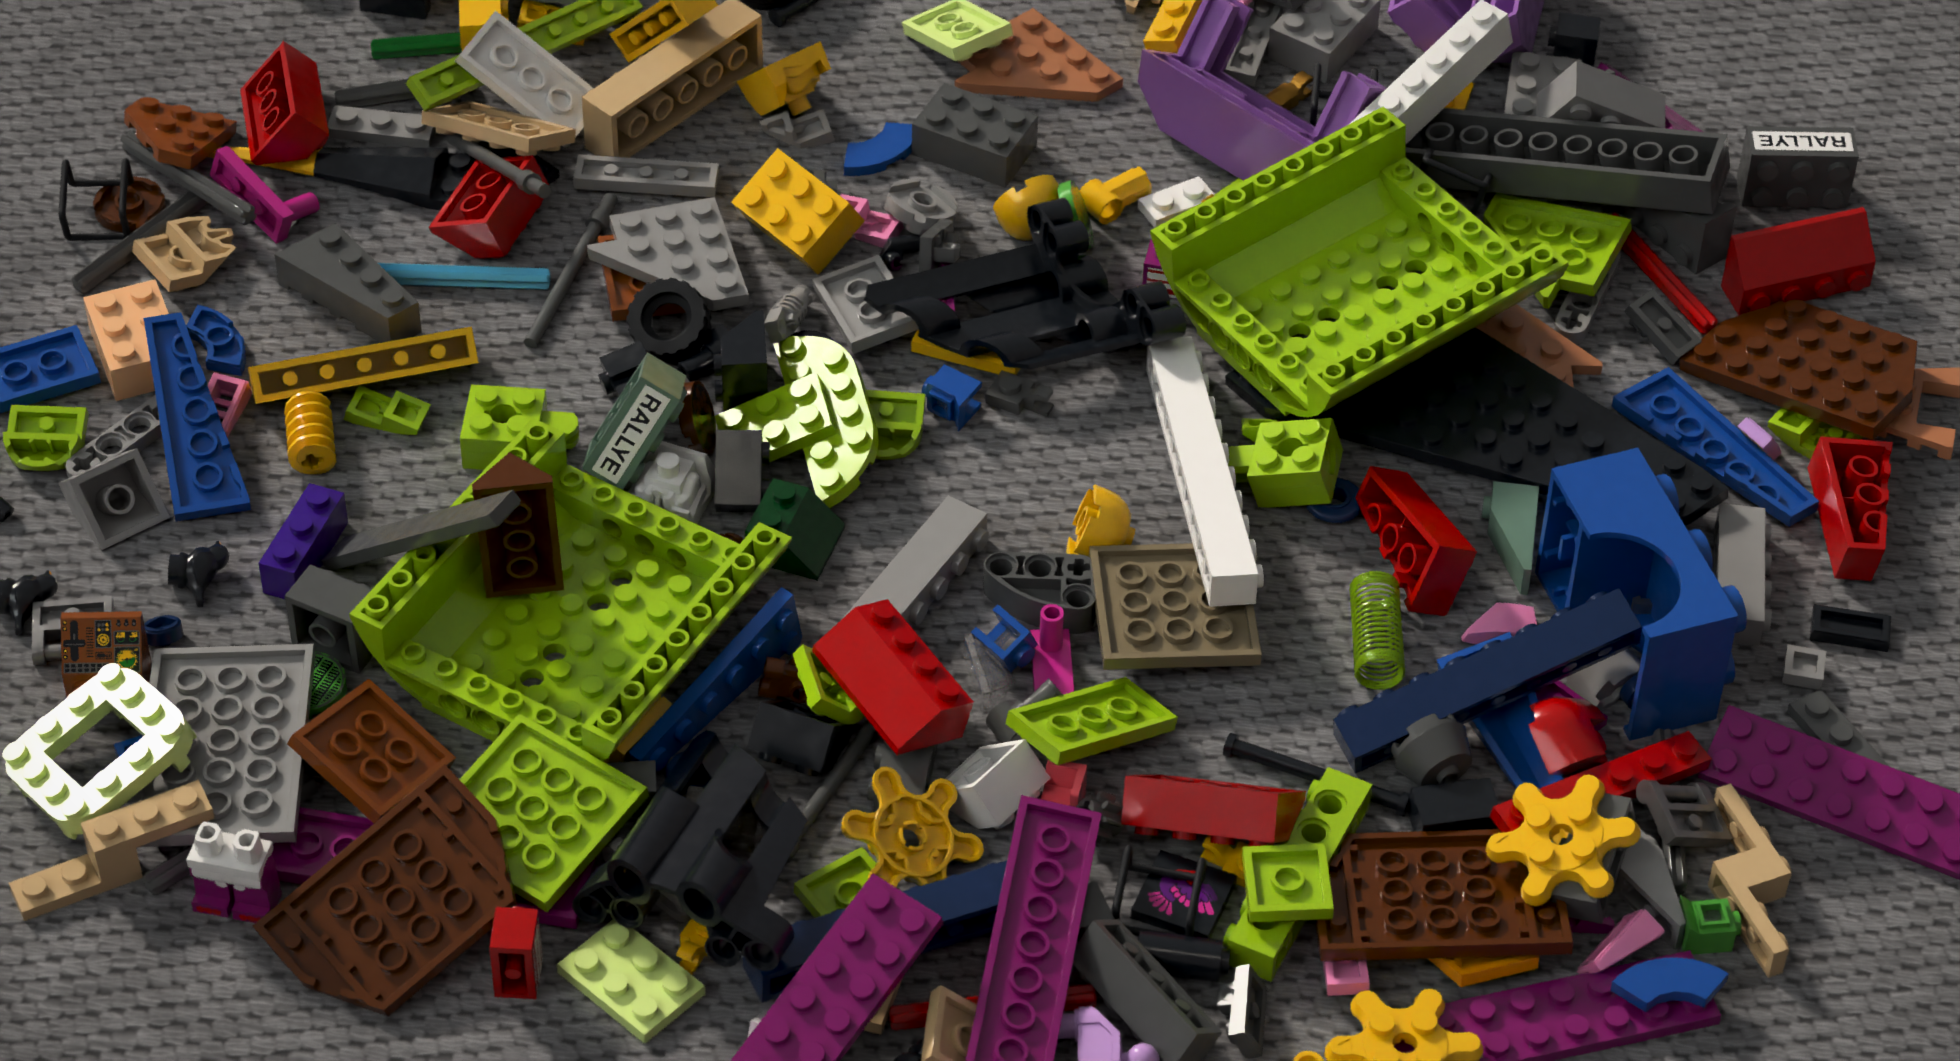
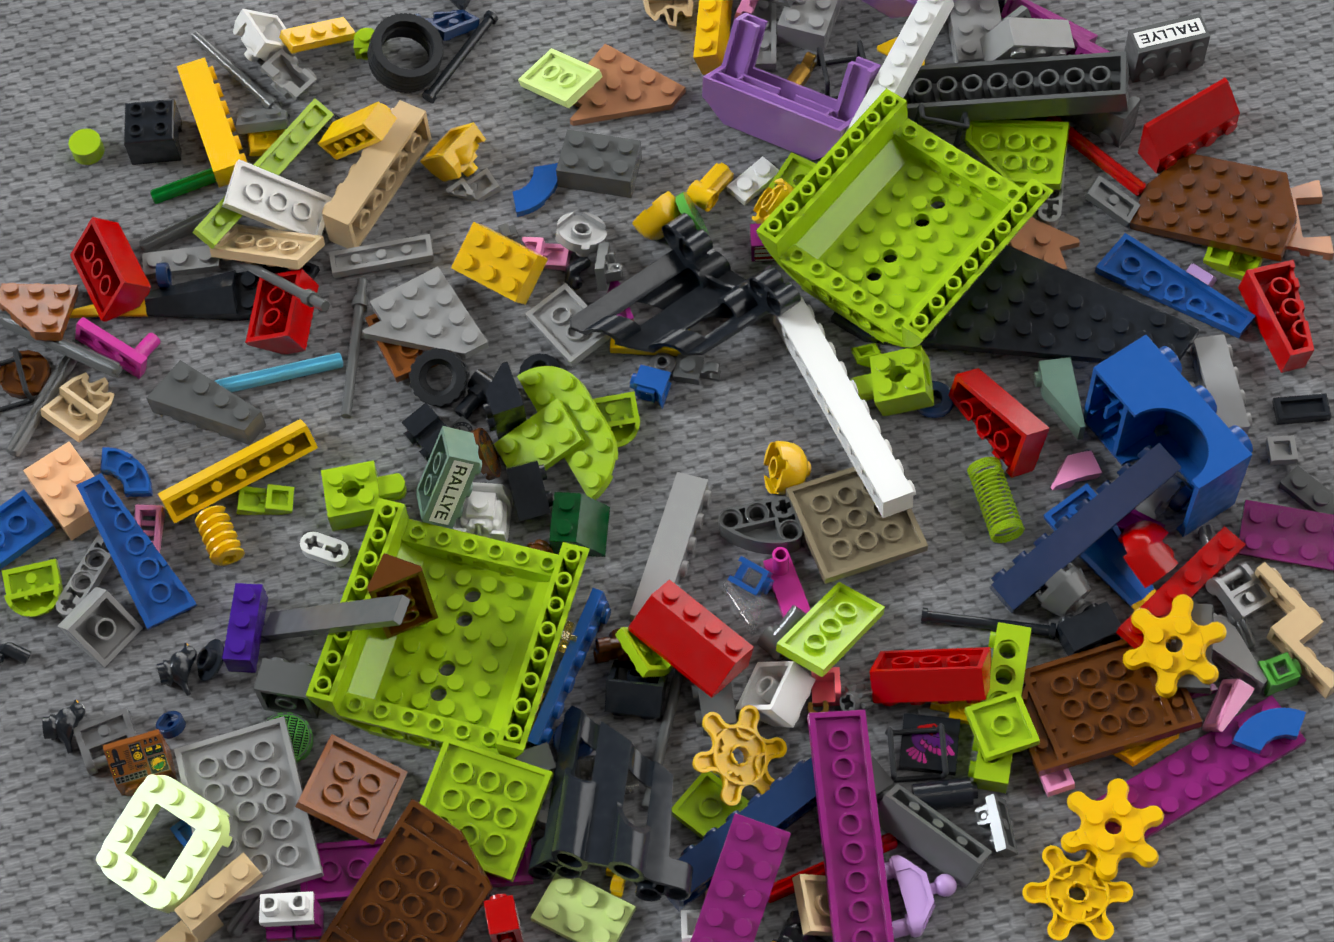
camera: 10 degrees left, 15 degrees up
(241, 567) = (210, 660): none -> black piece
(351, 131) = (163, 275): none -> dark blue tile
(439, 487) = (322, 554): none -> white beam
(725, 634) = (567, 636): none -> clear yellow piece
(788, 313) = (519, 349): light grey hinge -> none
(982, 373) = (663, 357): none -> flat silver plate

